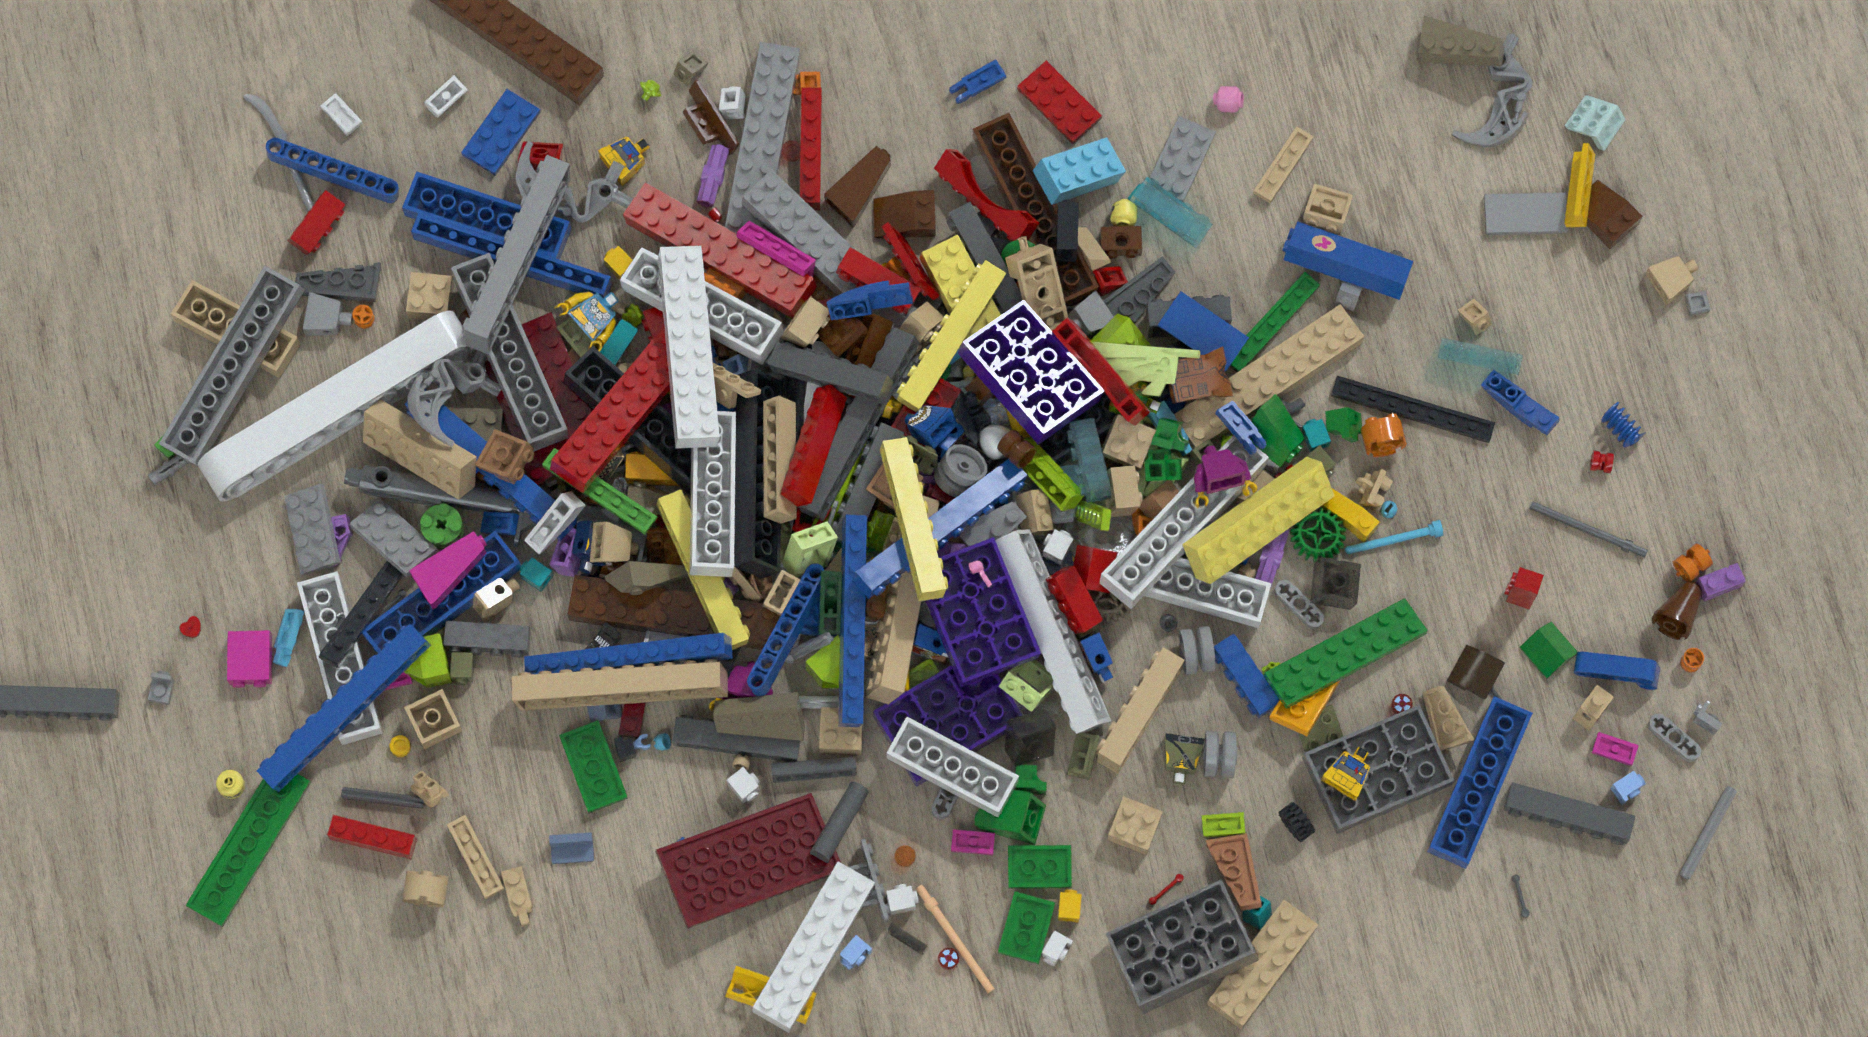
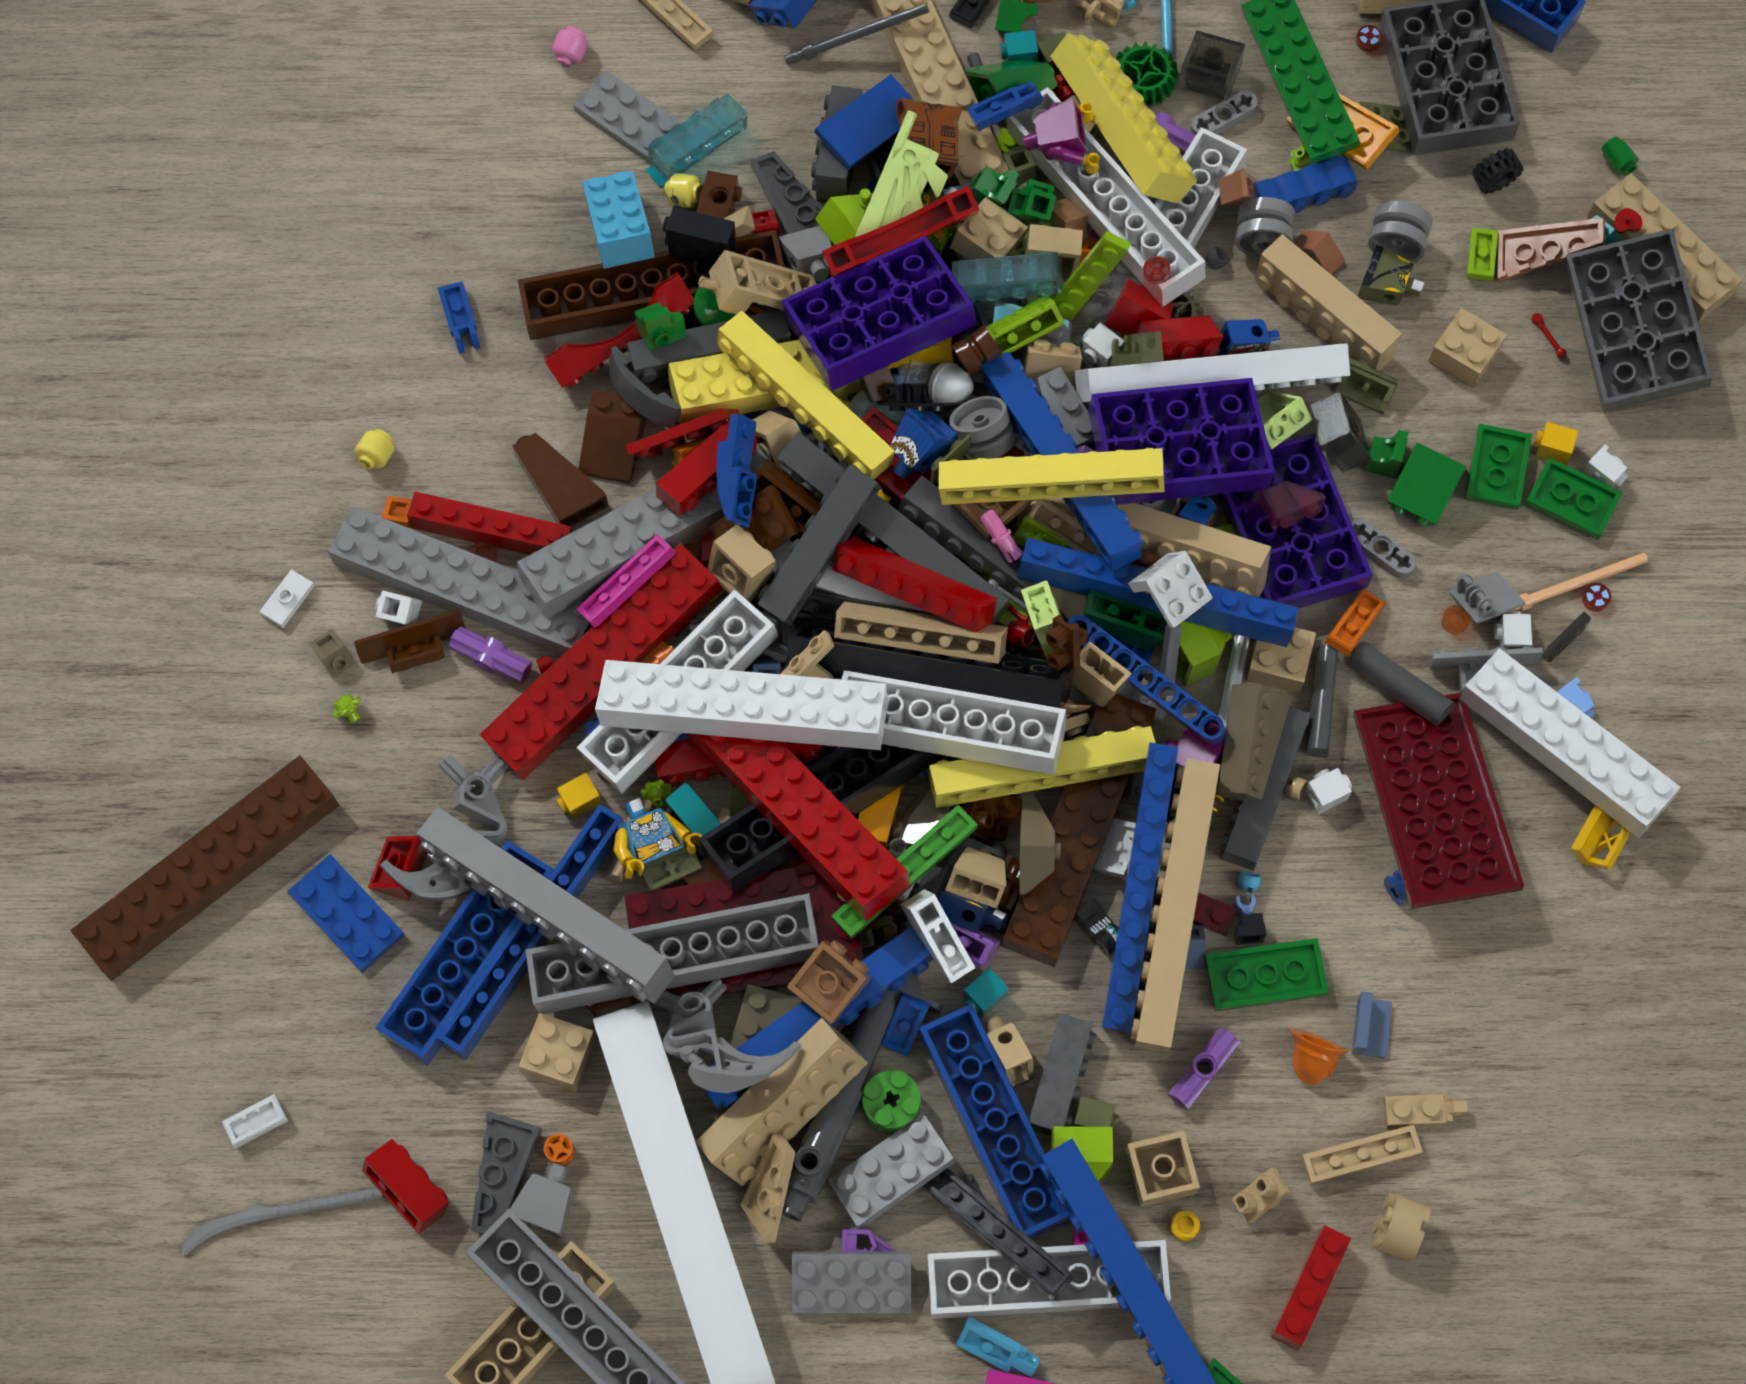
camera: 75 degrees left, 5 degrees down
(339, 177) = (330, 1161): blue beam -> none
(360, 456) = (768, 1188): none -> tan wing
(382, 797) = (1254, 1265): dark grey axle -> none
(445, 96) = (274, 973): white brick -> none
(446, 569) = (965, 1102): dark pink slope -> none
(502, 729) = (1192, 1081): none -> medium lavender piece
(541, 809) = (1314, 1056): none -> orange piece
(627, 154) = (426, 756): torso -> none
(725, 26) = (287, 598): none -> white plate
(785, 557) = (1066, 642): none -> reddish brown hips
(847, 624) = (1174, 587): none -> white bracket
(853, 51) = (374, 449): none -> light yellow head
(866, 497) = (1001, 536): none -> bright pink axle
(881, 780) = (1355, 622): none -> orange tile
(922, 235) = (656, 408): none -> dark grey slope
(925, 873) = (1485, 596): none -> light grey hinge
(952, 767) = (1369, 521): white brick -> none
(955, 705) = (1289, 502): none -> clear pink slope
(972, 842) = (1453, 535): dark pink plate -> none
(976, 567) = (1131, 418): bright pink hand -> none
(983, 219) = (659, 326): none -> green brick
(1047, 569) = (1138, 349): none -> olive hinge
(1059, 102) = (514, 233): red plate -> none
(1115, 565) = (1156, 270): none -> clear red tile
(1193, 699) = (1321, 249): none -> nougat slope
(1221, 623) = (1236, 188): none -> nougat slope
(1269, 925) = (1627, 220): none -> red piece
(1273, 279) = (811, 50): none -> dark grey bar
(1275, 319) = (855, 53): green plate -> none
(1339, 918) = (1619, 156): none -> green brick
(1348, 773) = (1458, 93): torso -> none
(1354, 516) = (1136, 26): yellow slope -> none

